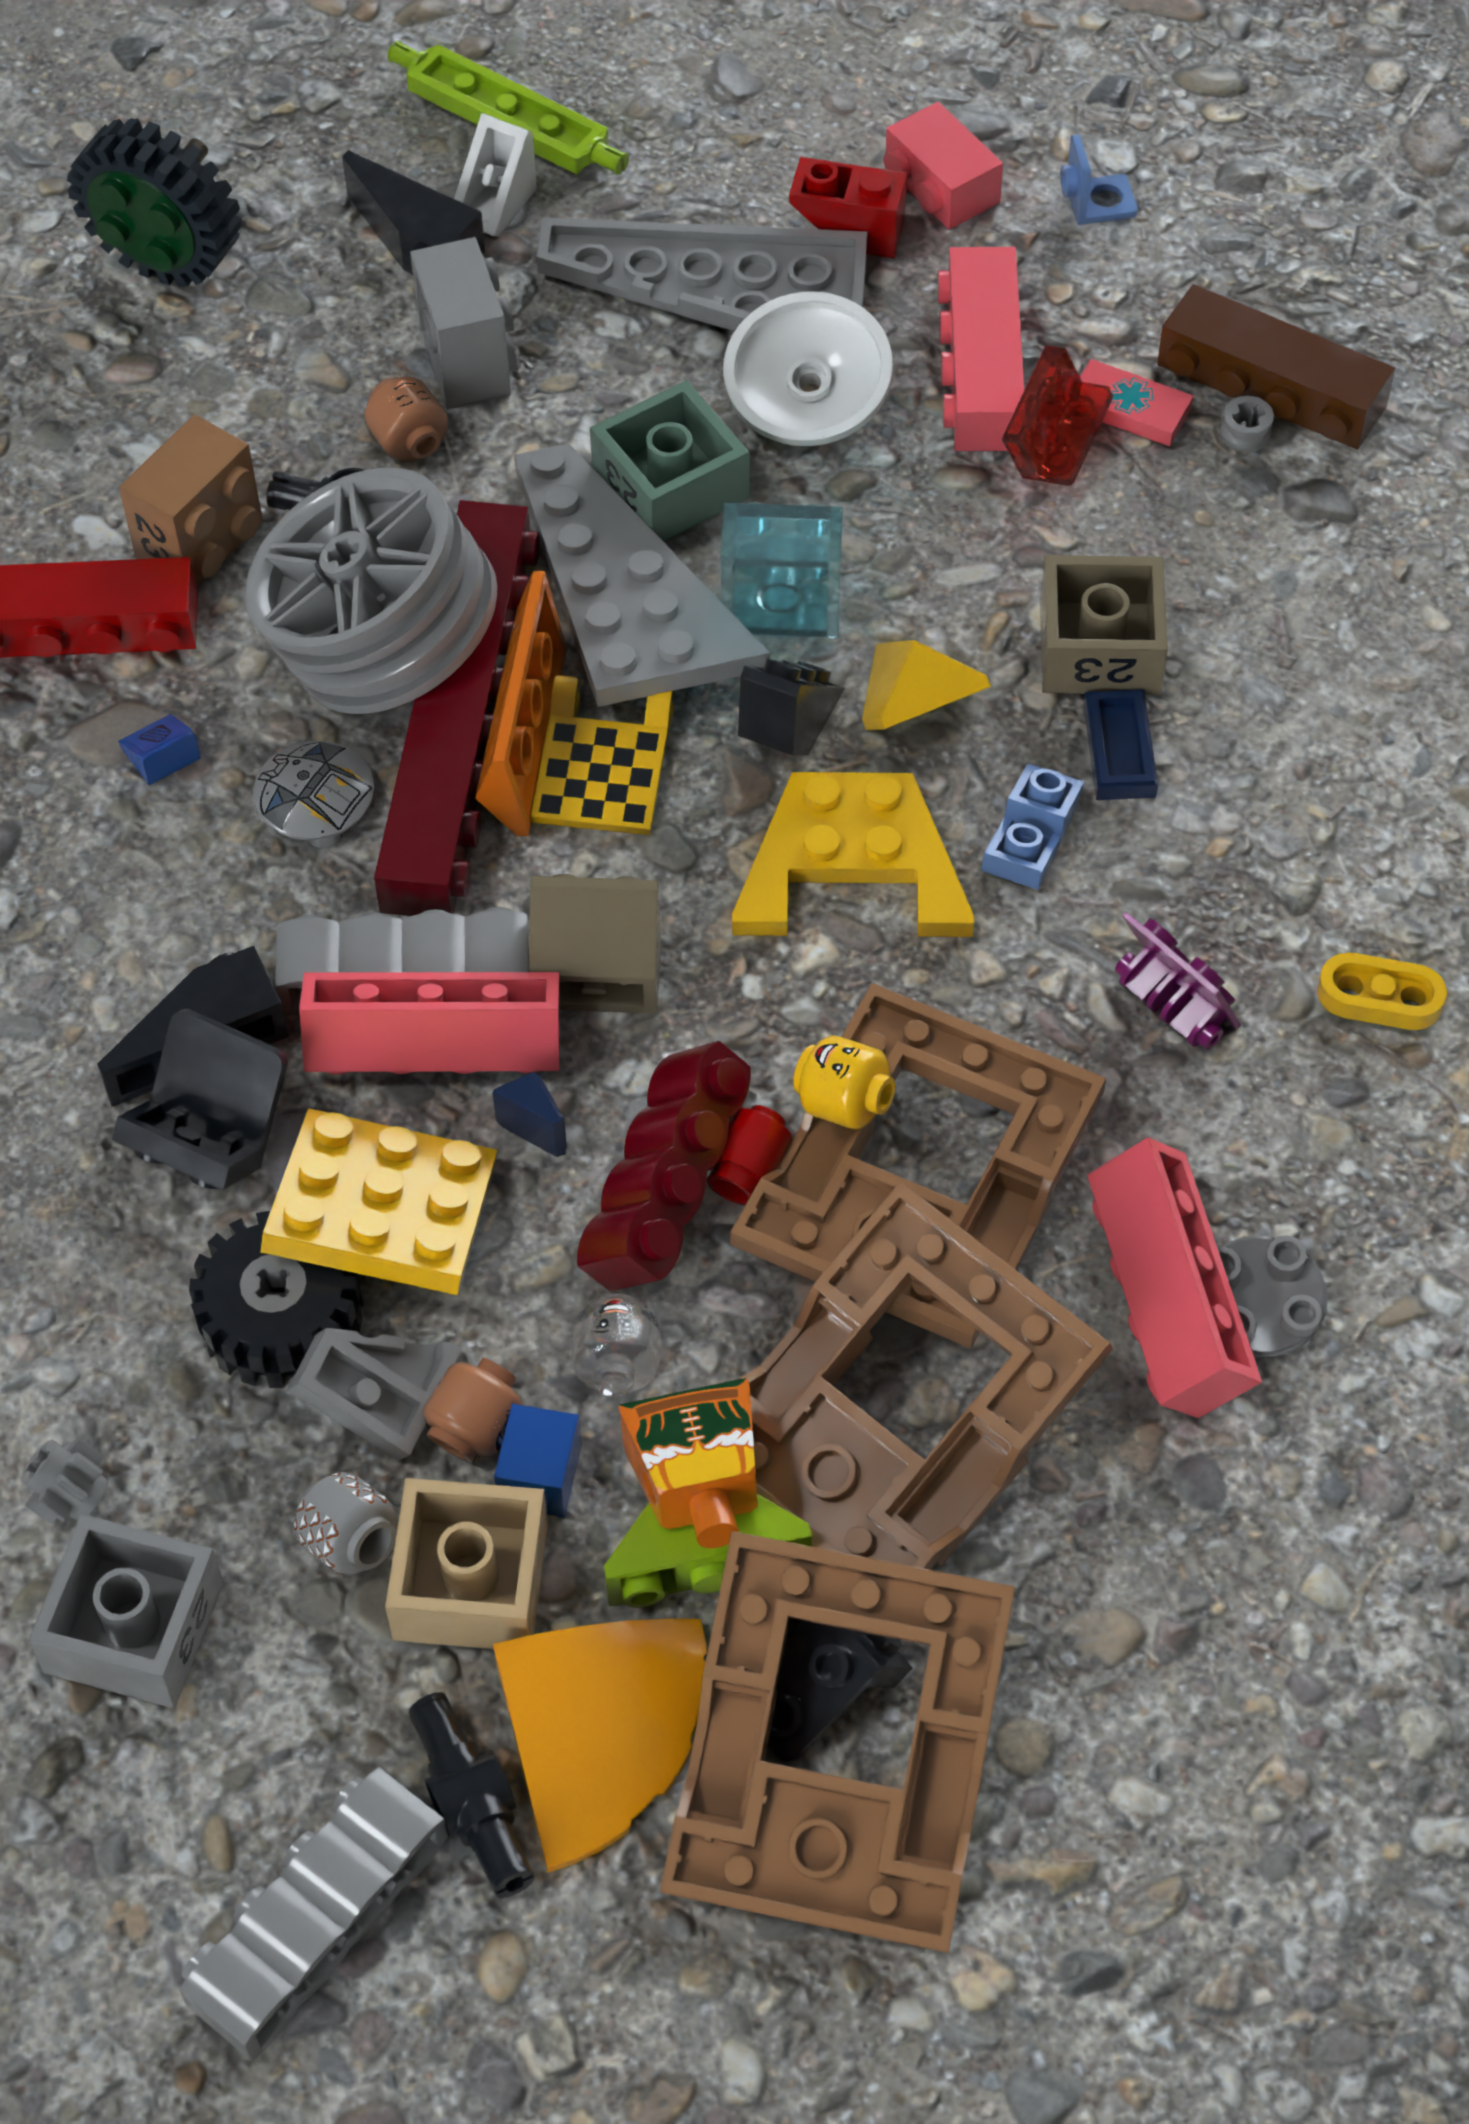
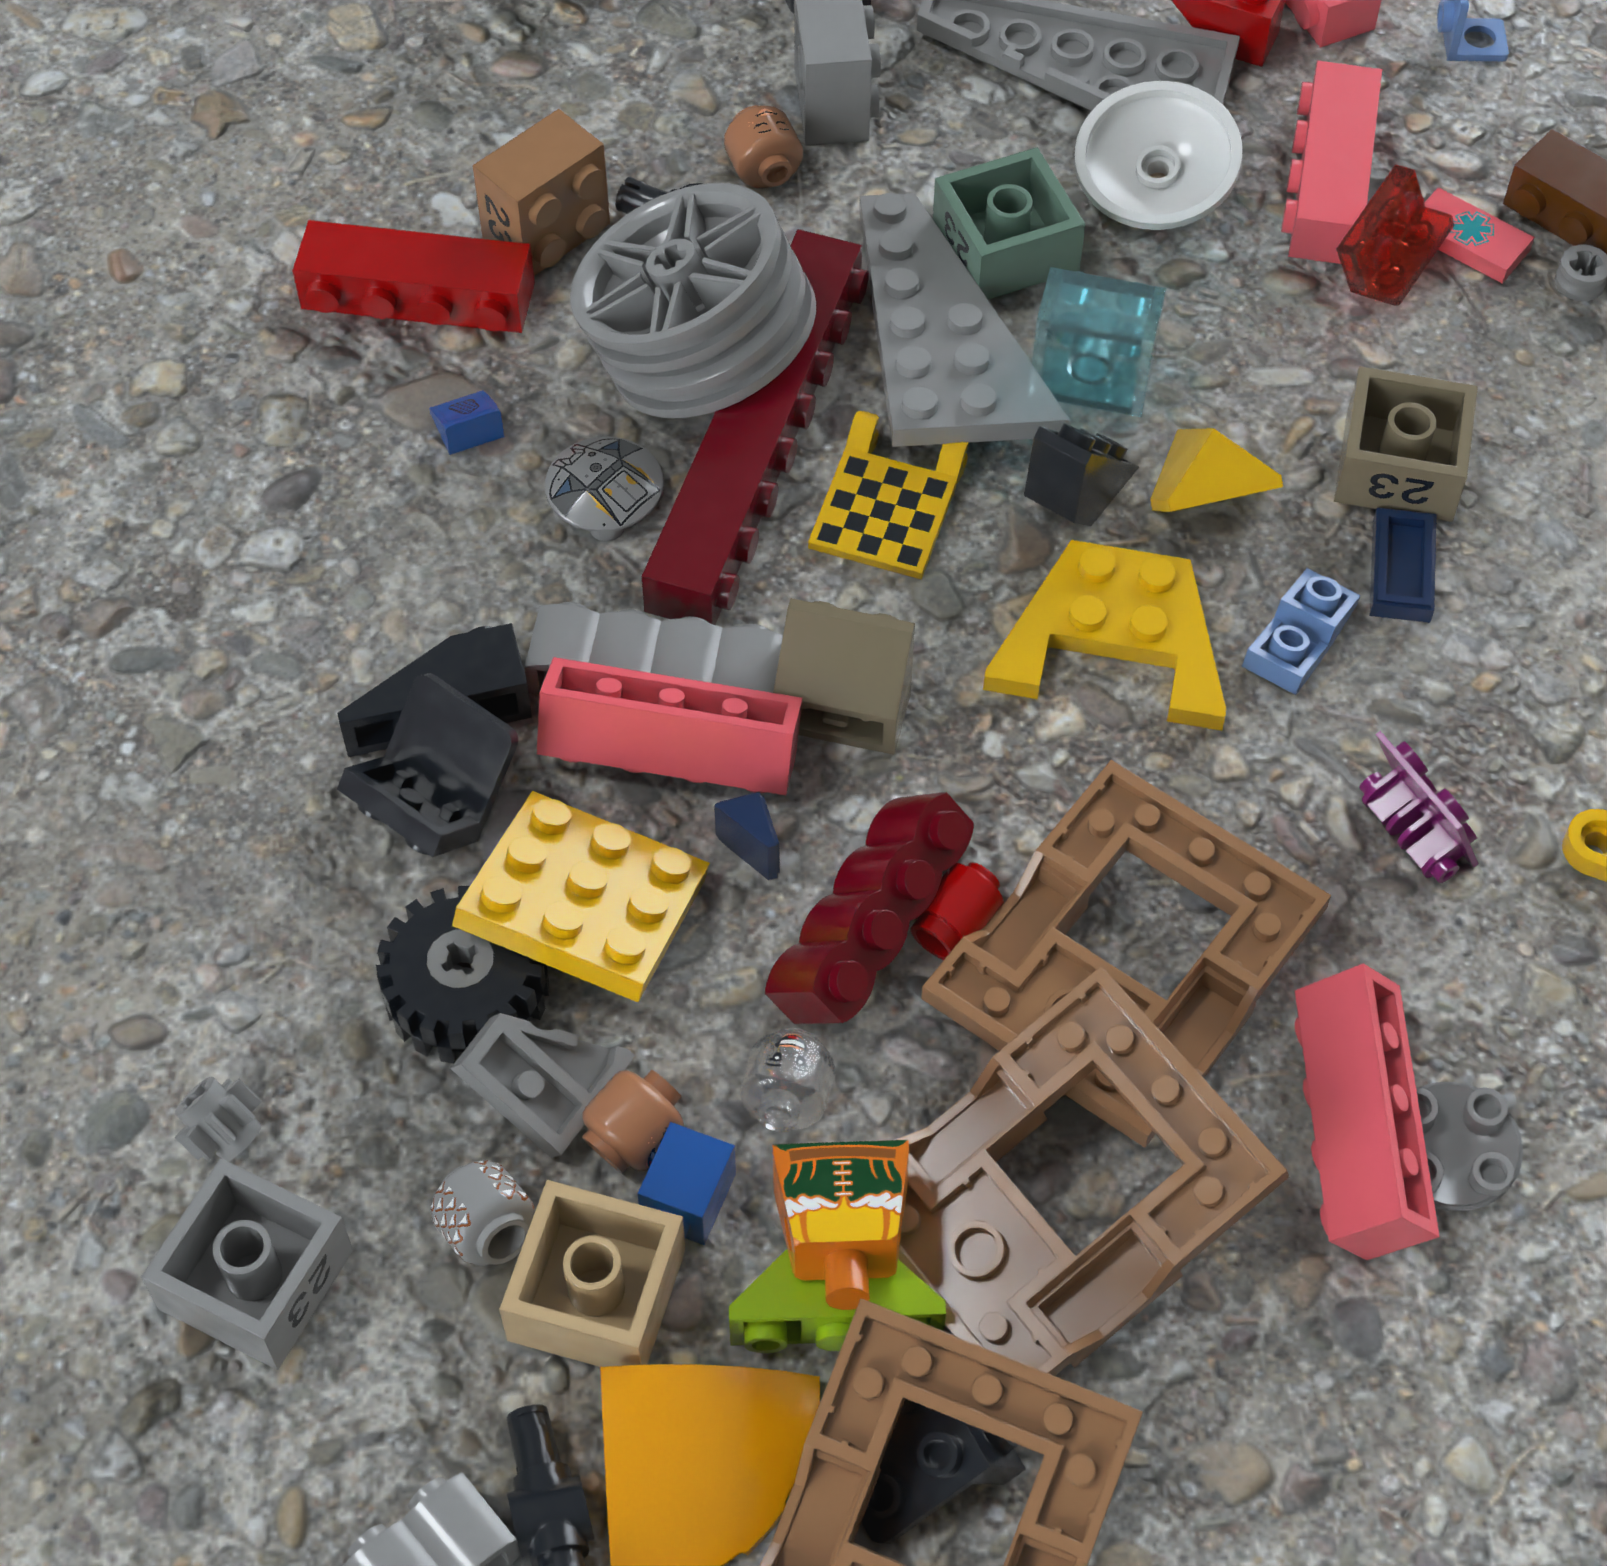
camera: 10 degrees right, 0 degrees up
(522, 708) = (819, 437): orange slope -> none
(844, 1082) = (1063, 854): yellow head -> none

